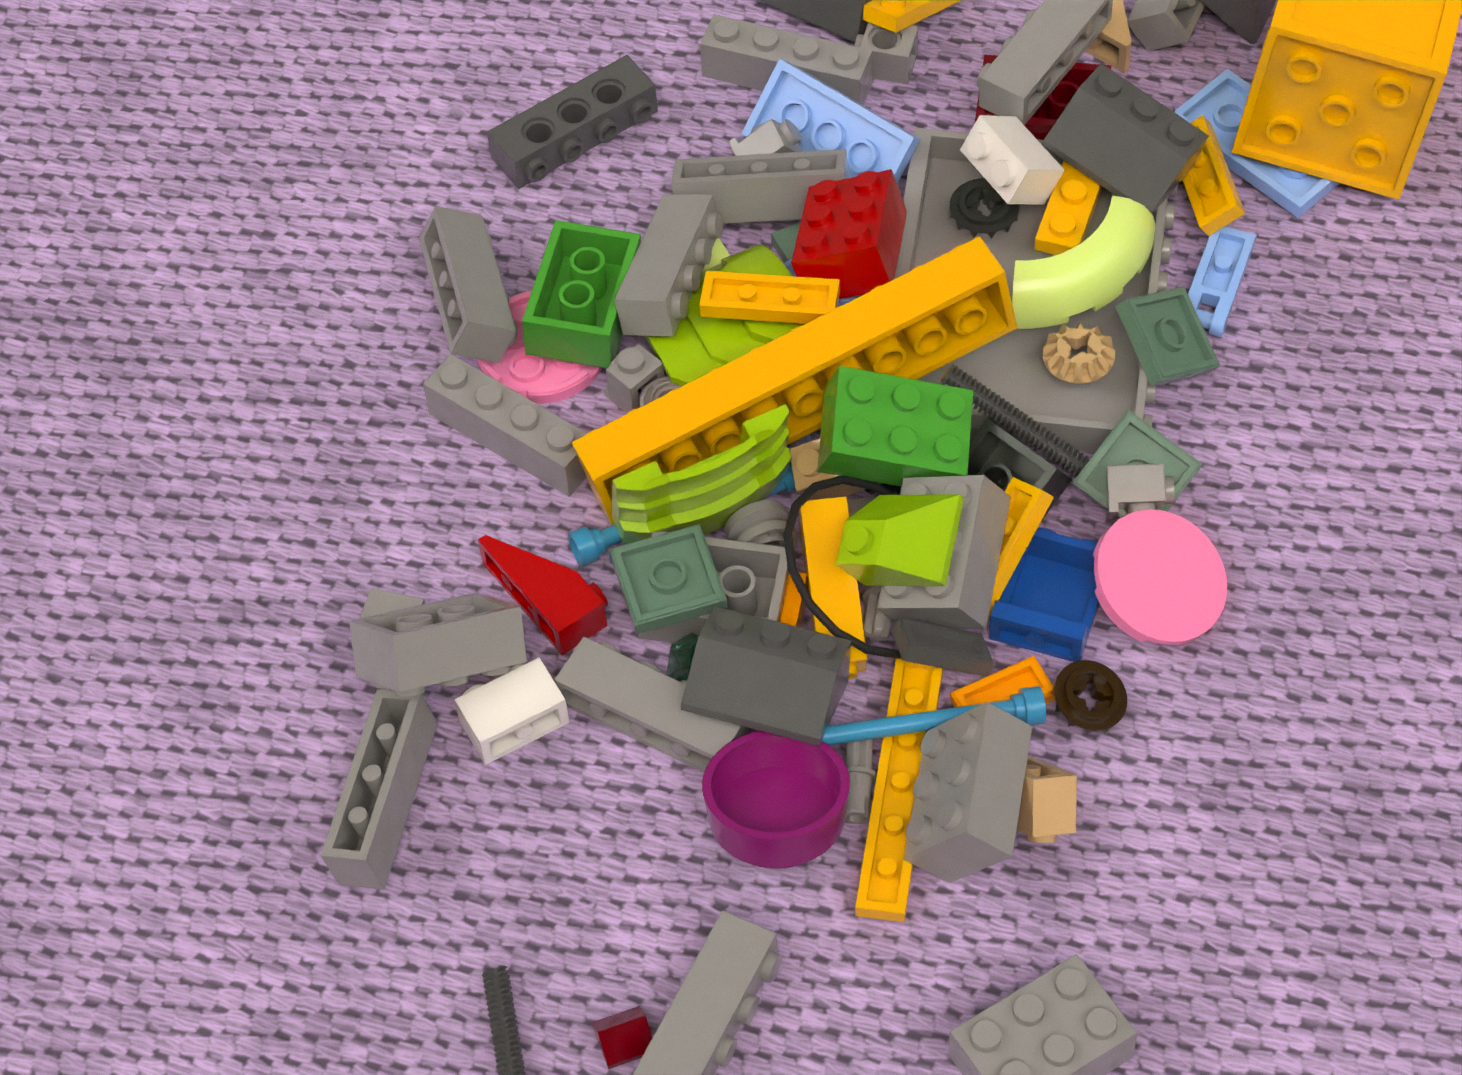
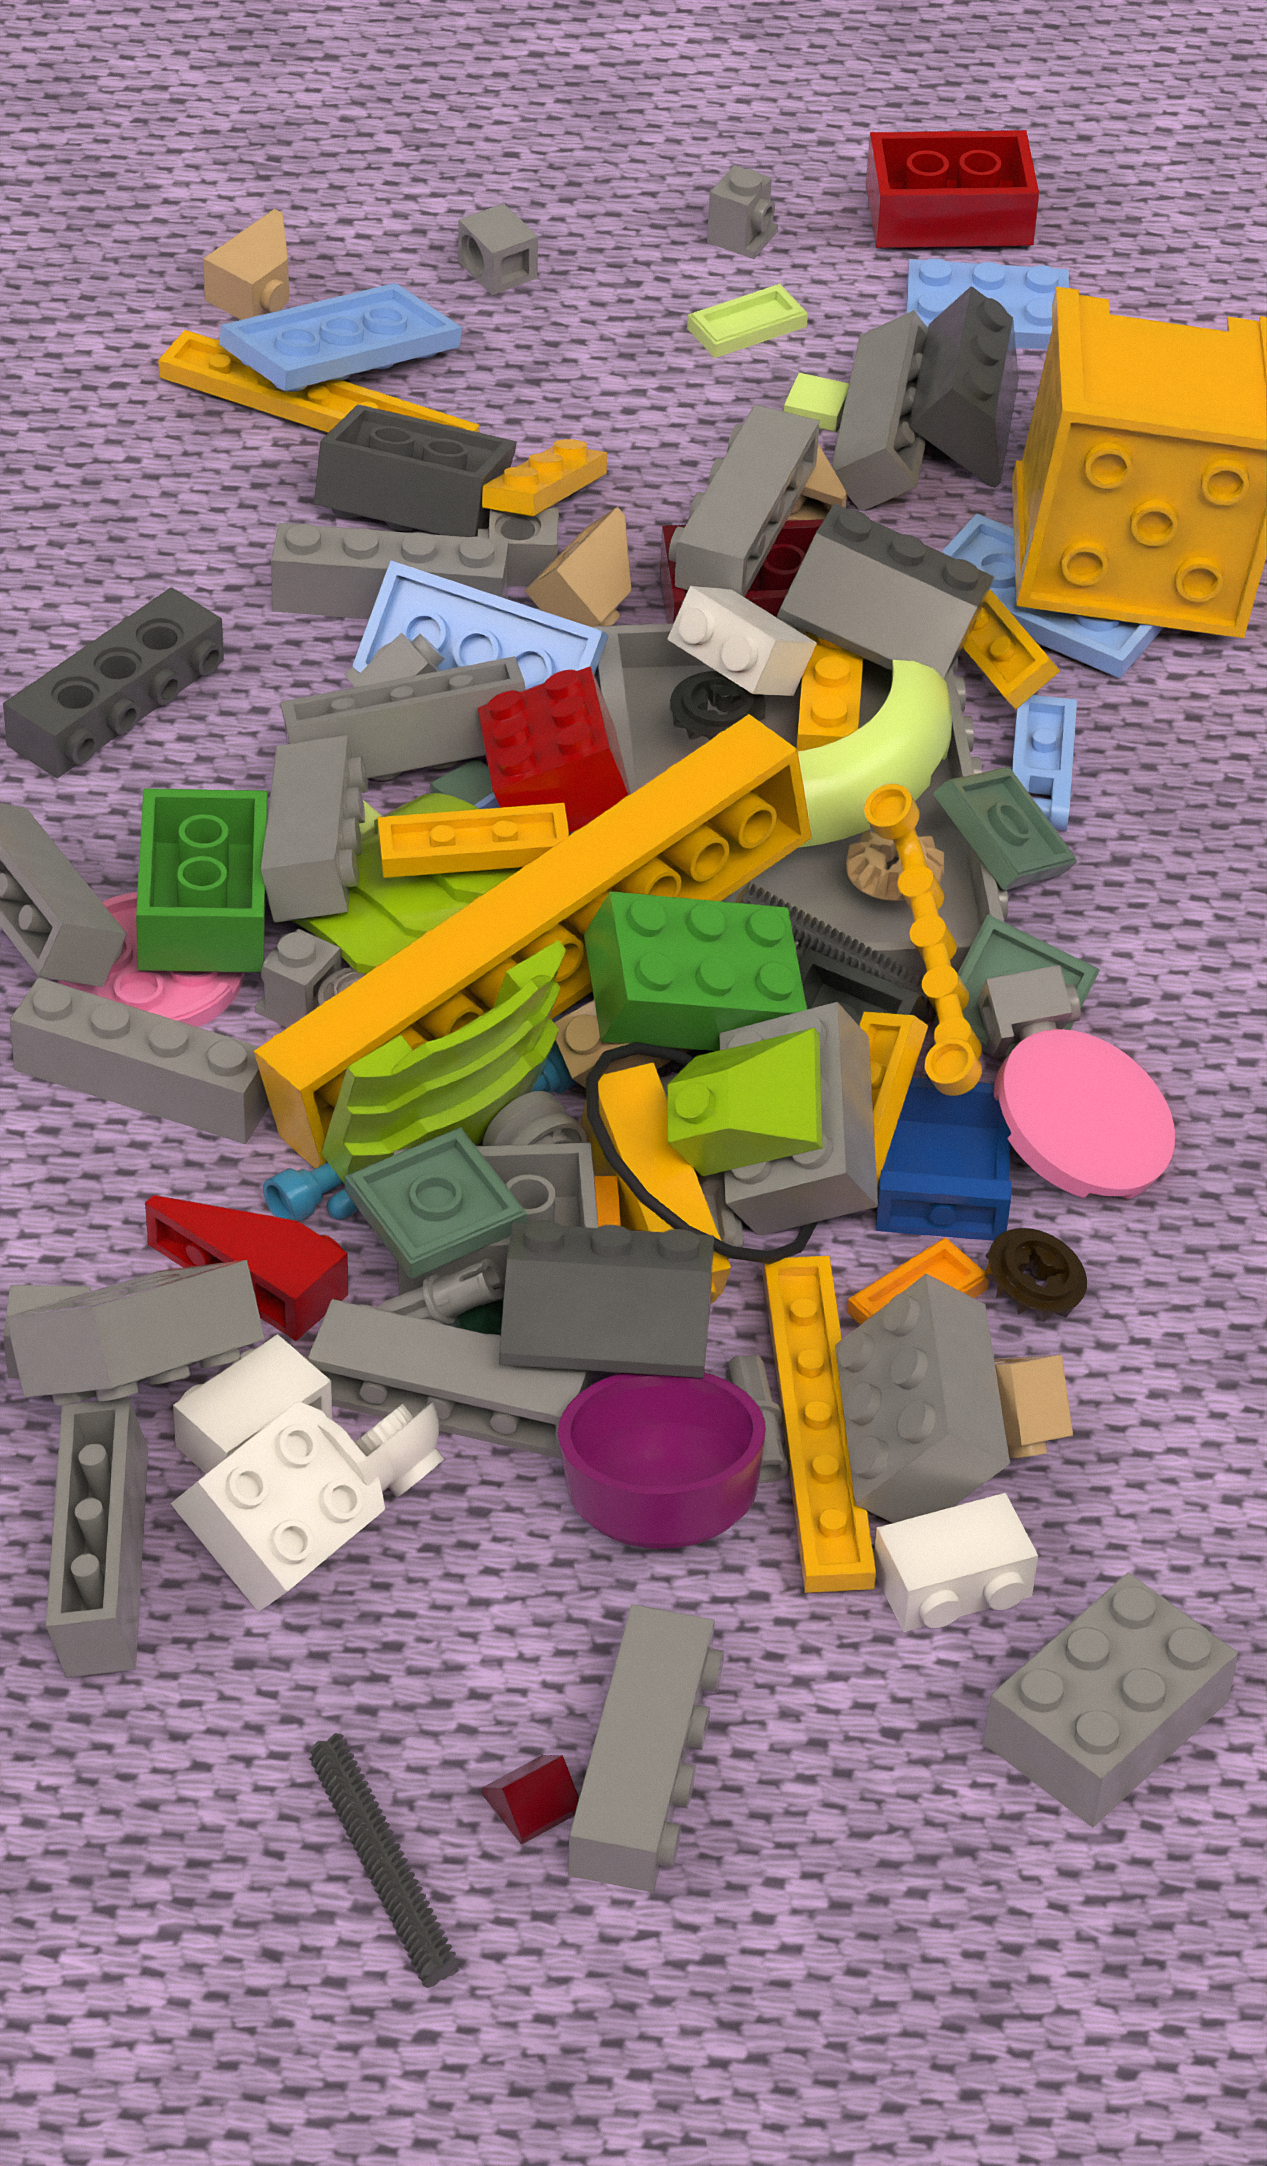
camera: 20 degrees left, 10 degrees down
(522, 784) = (303, 1493): none -> white brick
(661, 646) = (451, 1294): none -> light grey axle
(924, 86) = (588, 575): none -> tan slope
(942, 647) = (825, 1239): dark grey tile -> none
(964, 916) = (955, 1563): none -> white brick
(1026, 706) = (824, 1333): dark azure piece -> none
(1068, 529) = (954, 1059): none -> yellow bar

